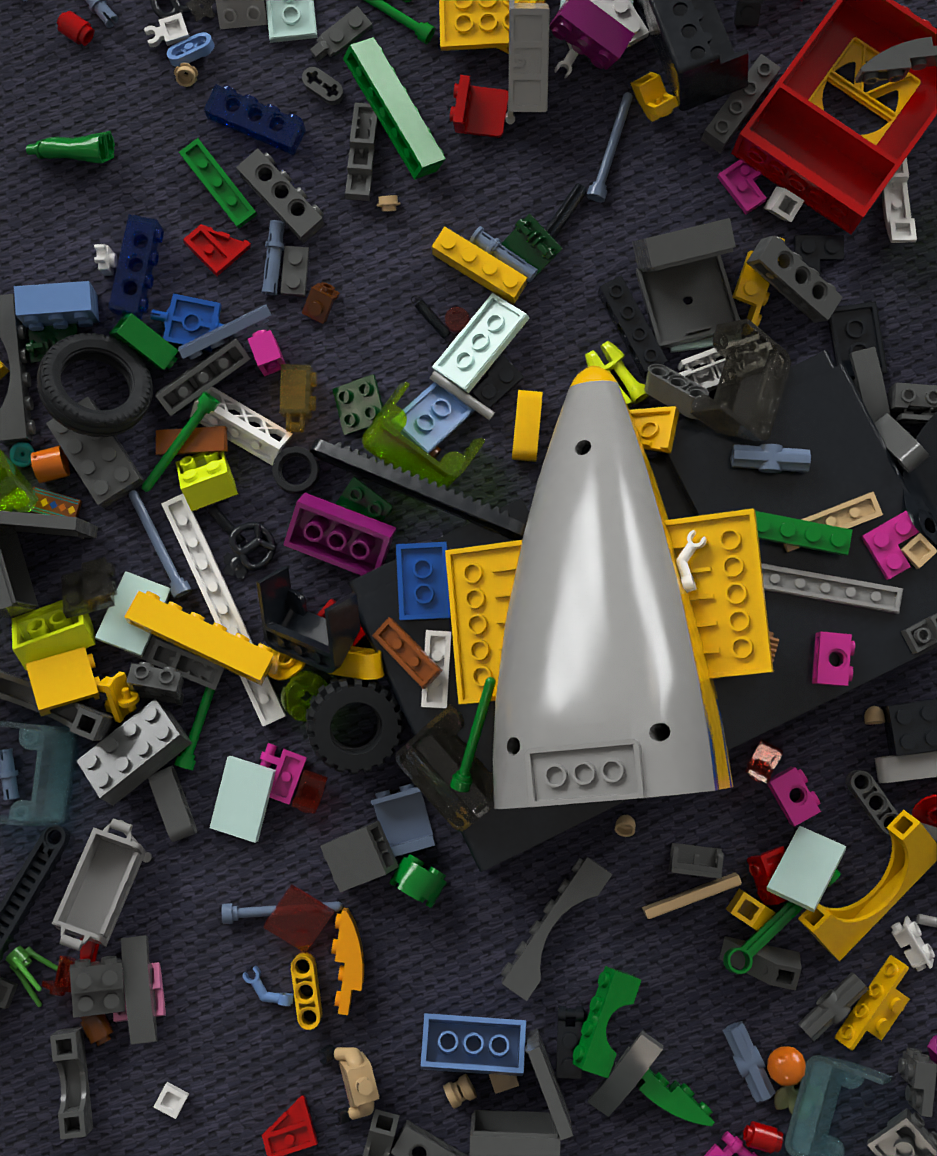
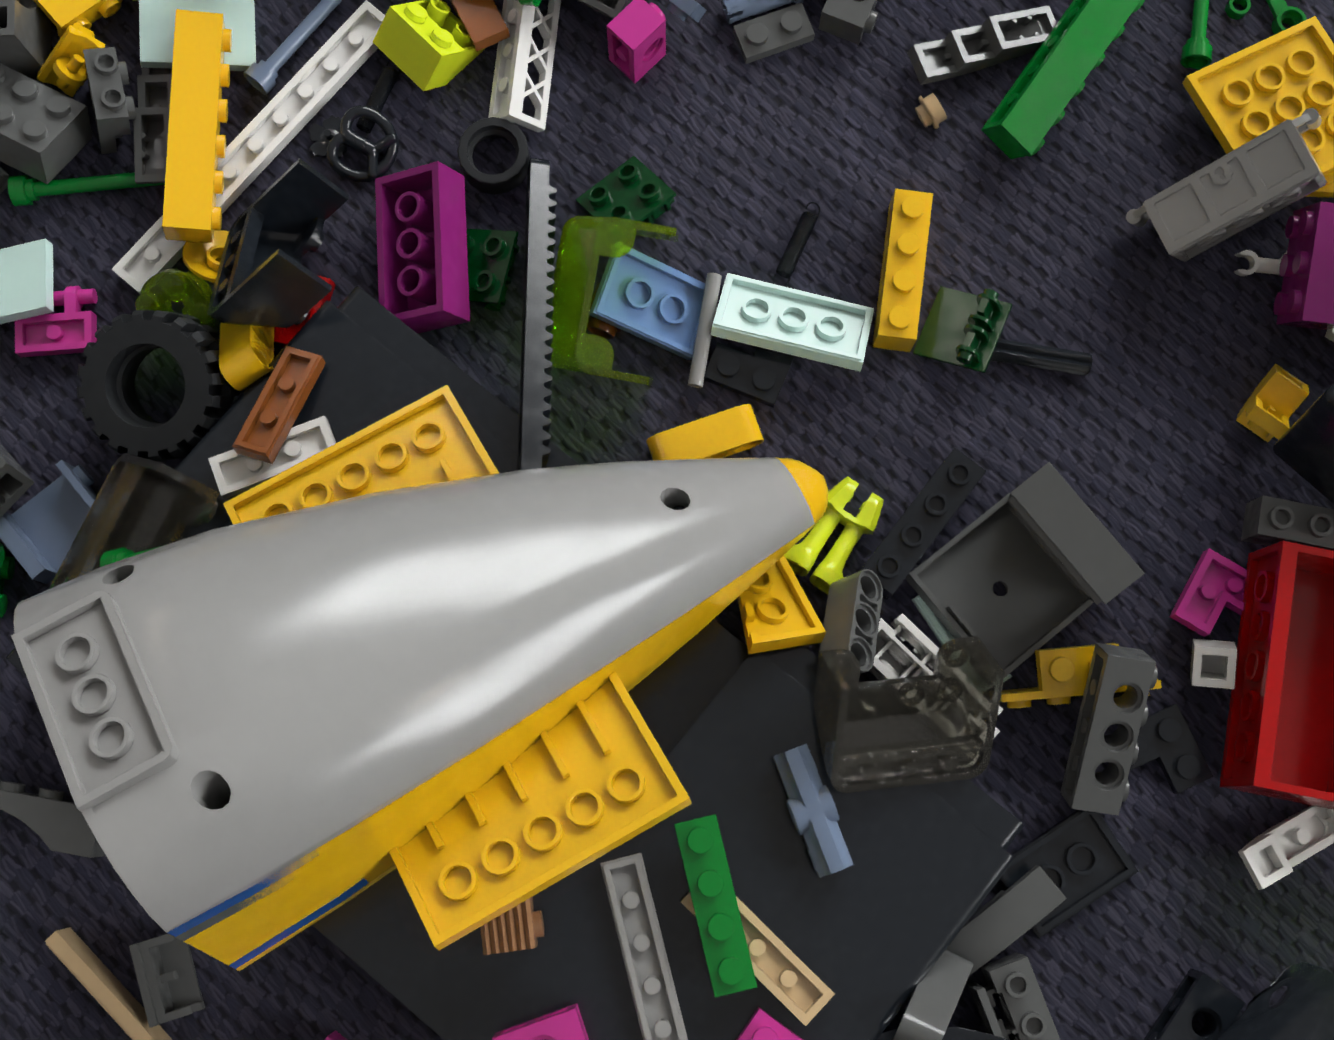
camera: 60 degrees right, 5 degrees down
(296, 394) = (599, 109): clear yellow brick -> none
(309, 792) = (44, 374): clear red bracket -> none
(320, 301) = (746, 82): reddish brown bracket -> none
(422, 581) = (394, 375): blue plate -> none
(456, 319) = (812, 276): clear red tile -> none
(478, 109) = (1123, 166): red bracket -> none
(495, 248) = (937, 282): sand blue pin -> none
(597, 191) = (1095, 387): sand blue piece -> none
(686, 576) = (530, 745): white arm -> none
(763, 761) = (357, 1013): clear red bracket -> none

